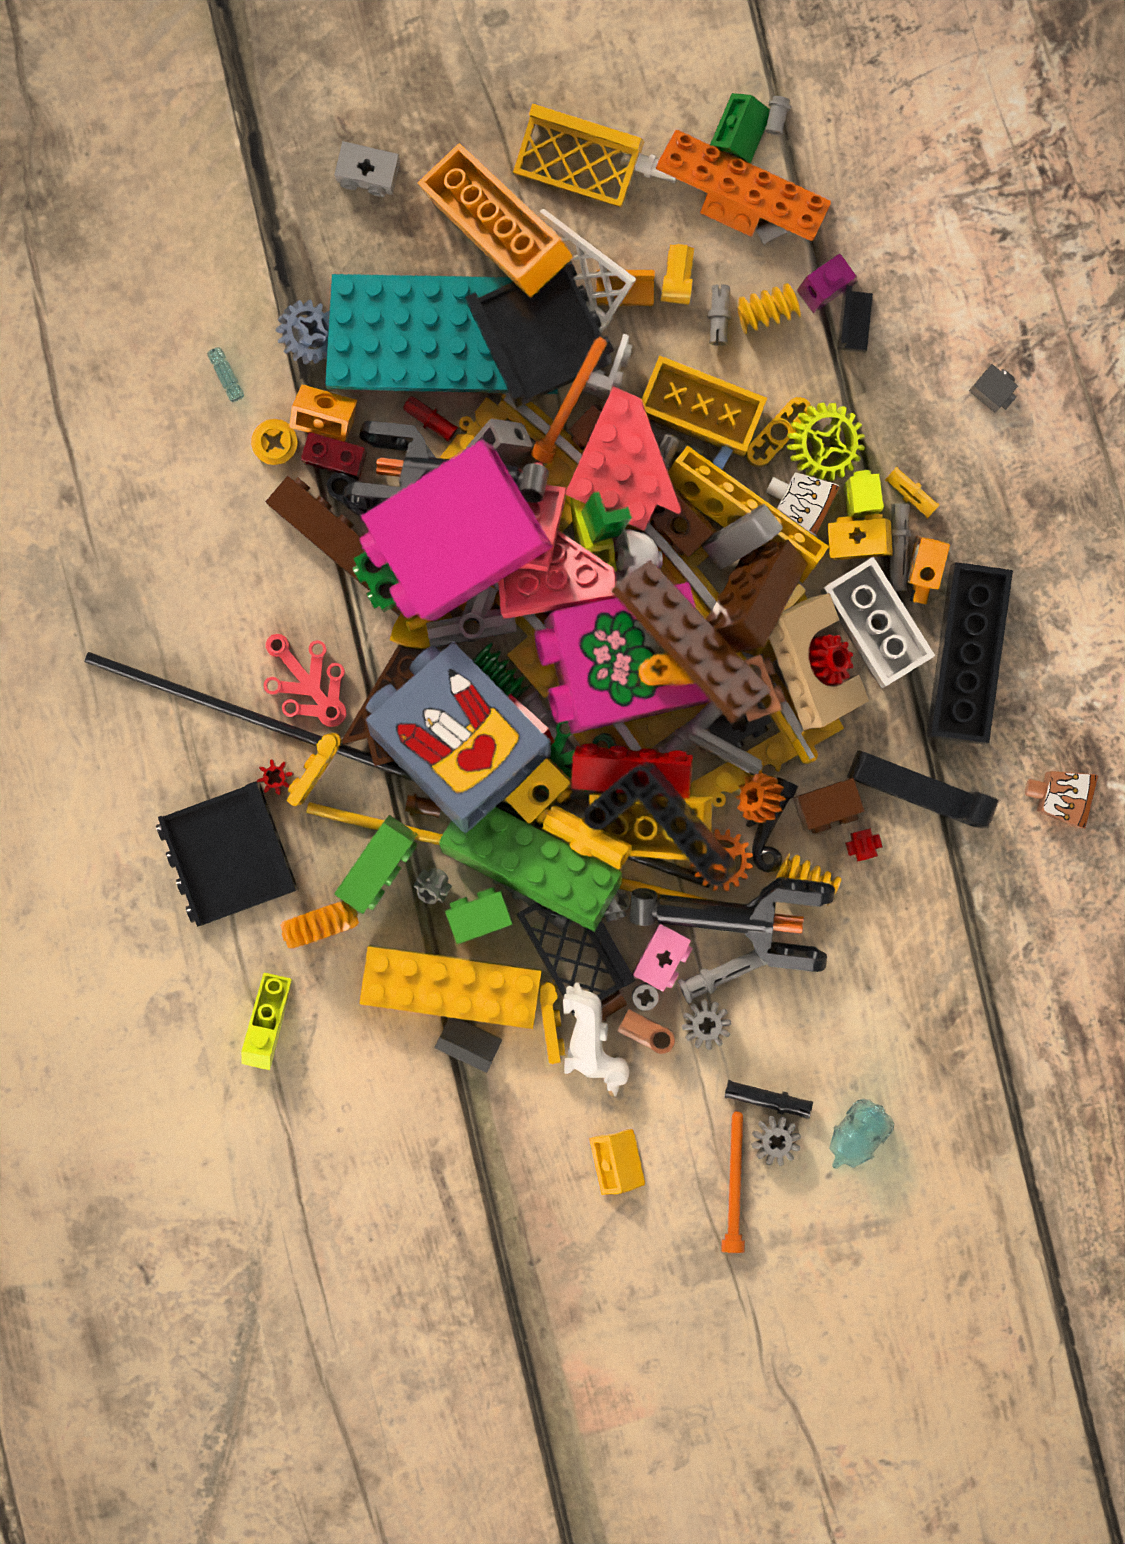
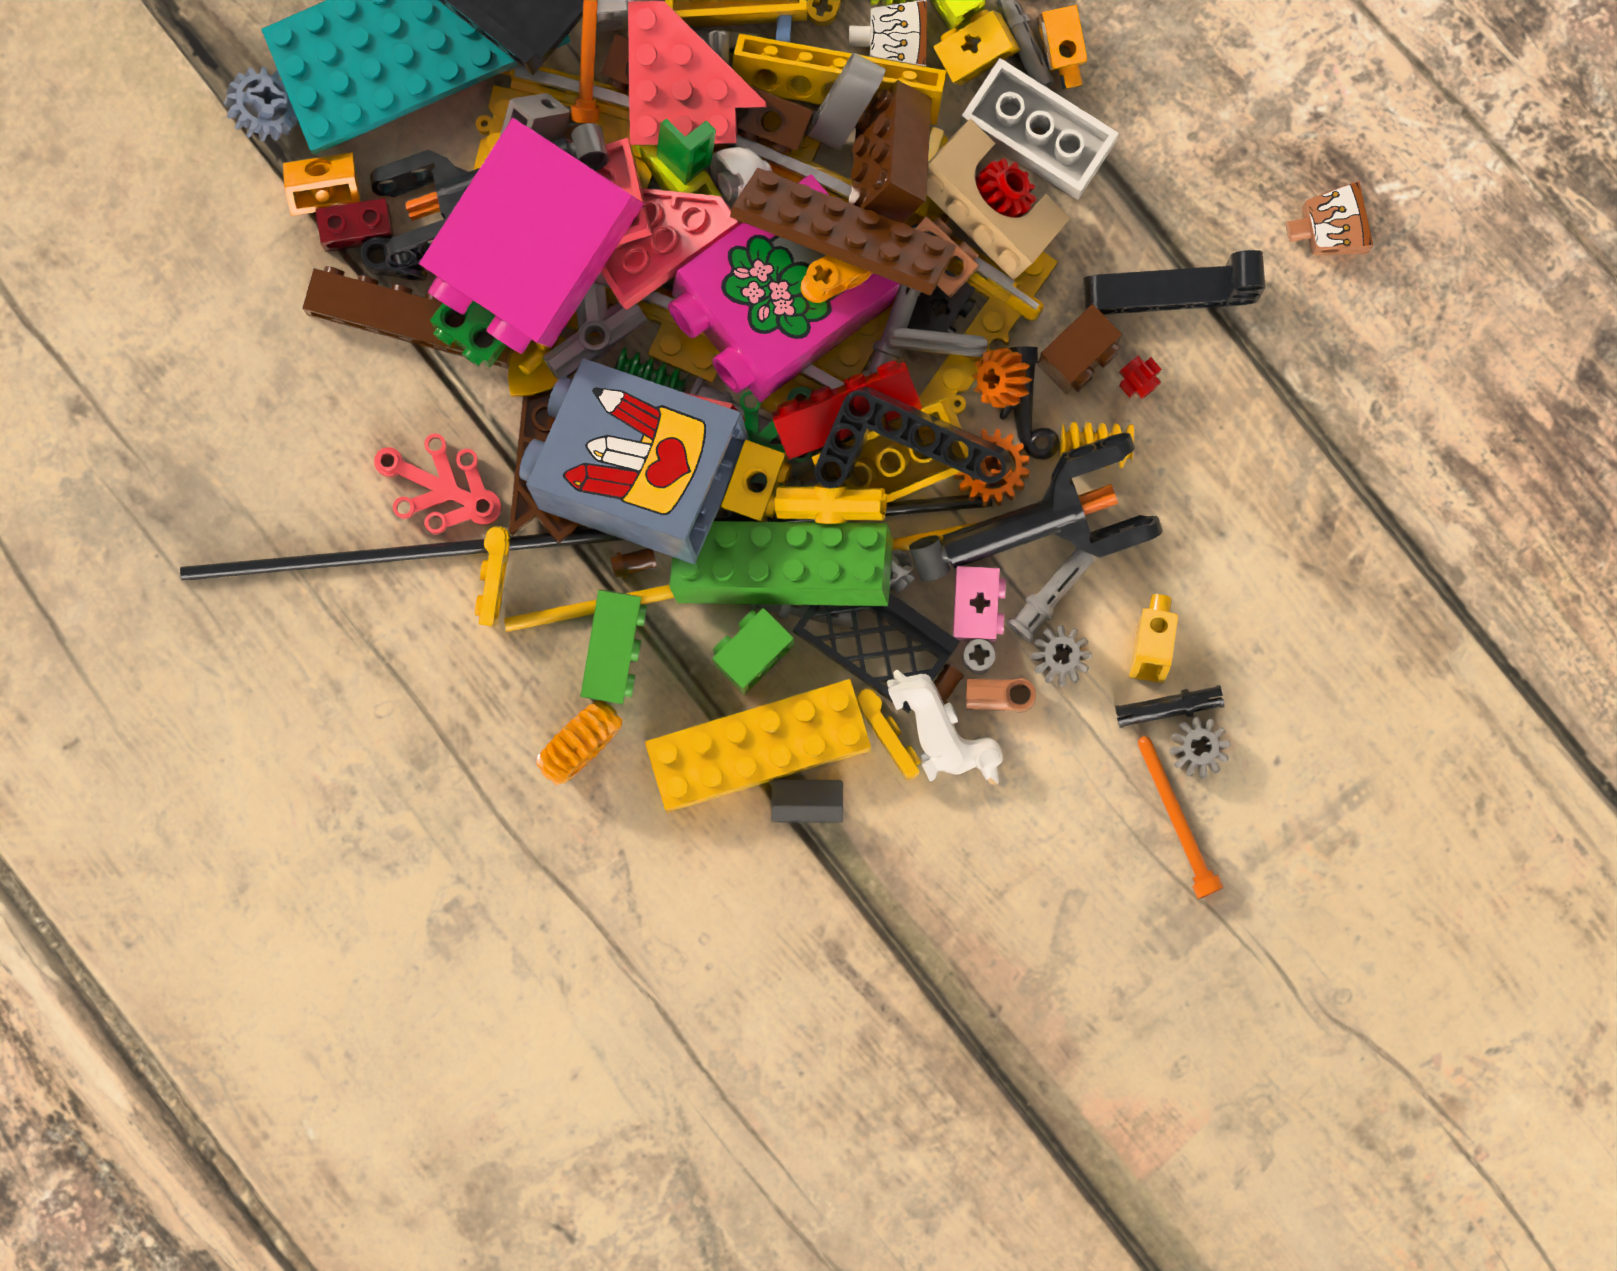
camera: 25 degrees left, 5 degrees down
(225, 374) = (193, 193): clear light blue axle -> none
(226, 854) = (440, 717): black panel -> none
(261, 445) = (272, 228): yellow gear -> none
(265, 1021) = (569, 883): neon yellow slope -> none
(267, 779) = (460, 614): red gear -> none
(430, 418) = (441, 136): red axle -> none
(432, 886) = (685, 644): light grey gear -> none
(617, 1162) = (1034, 855): yellow panel -> none
(772, 1055) = (1154, 650): none -> yellow torso
(860, 1133) = (1288, 695): clear light blue helmet -> none
(969, 653) = (1155, 116): black brick -> none

